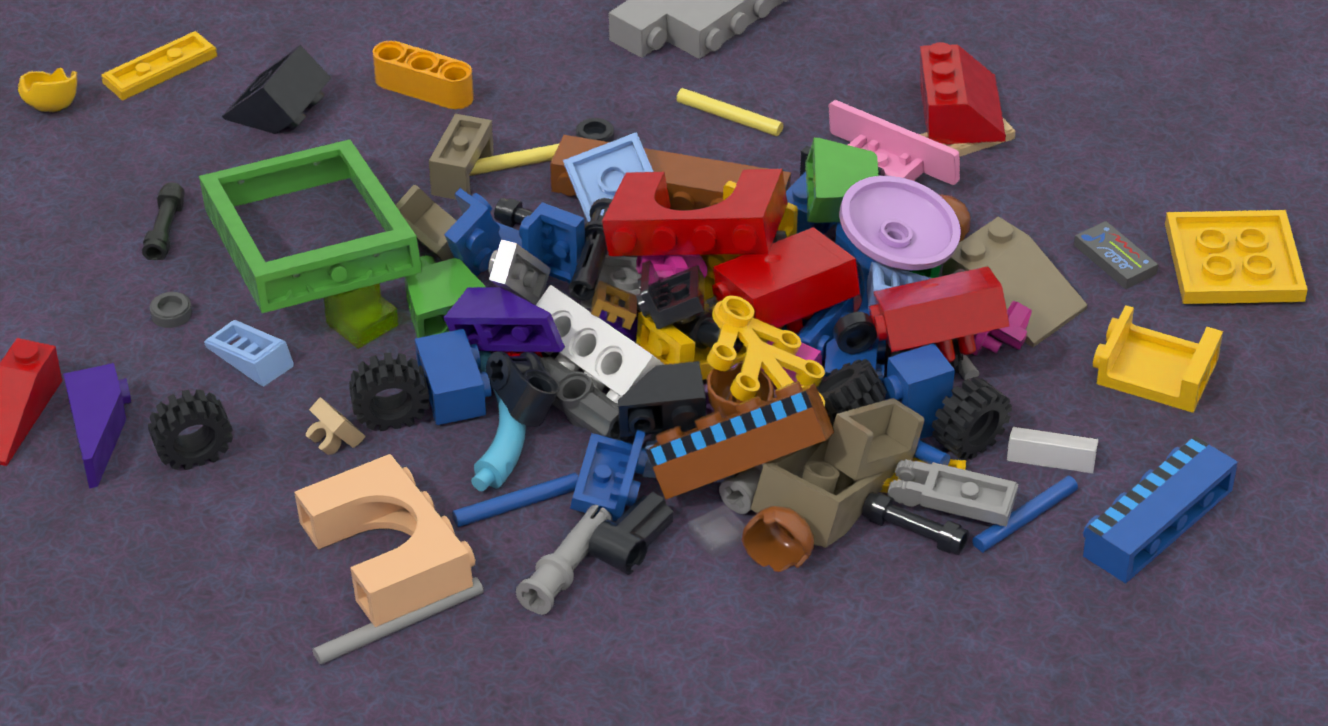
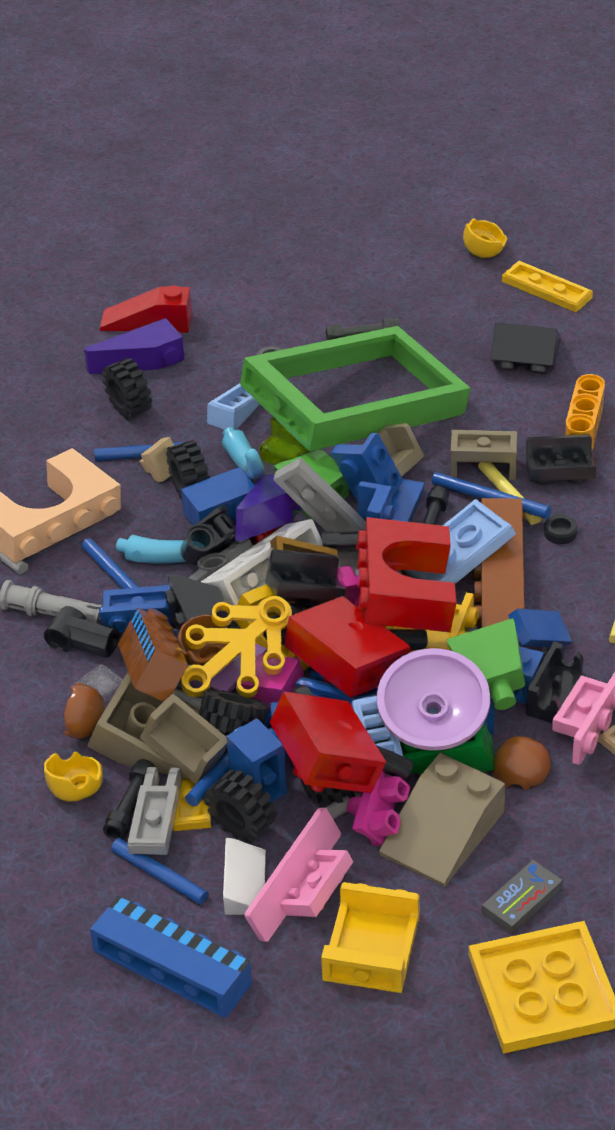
camera: 80 degrees right, 0 degrees up
(294, 451) = (119, 453): none -> blue bar
(347, 355) = (241, 453): none -> medium azure animal
(498, 102) = (560, 459): none -> black bracket
(529, 165) = (480, 492): none -> blue bar
(771, 160) = (540, 627): none -> blue tile
(878, 559) = (64, 774): none -> yellow hair
(1074, 390) = (302, 878): none -> bright pink bracket

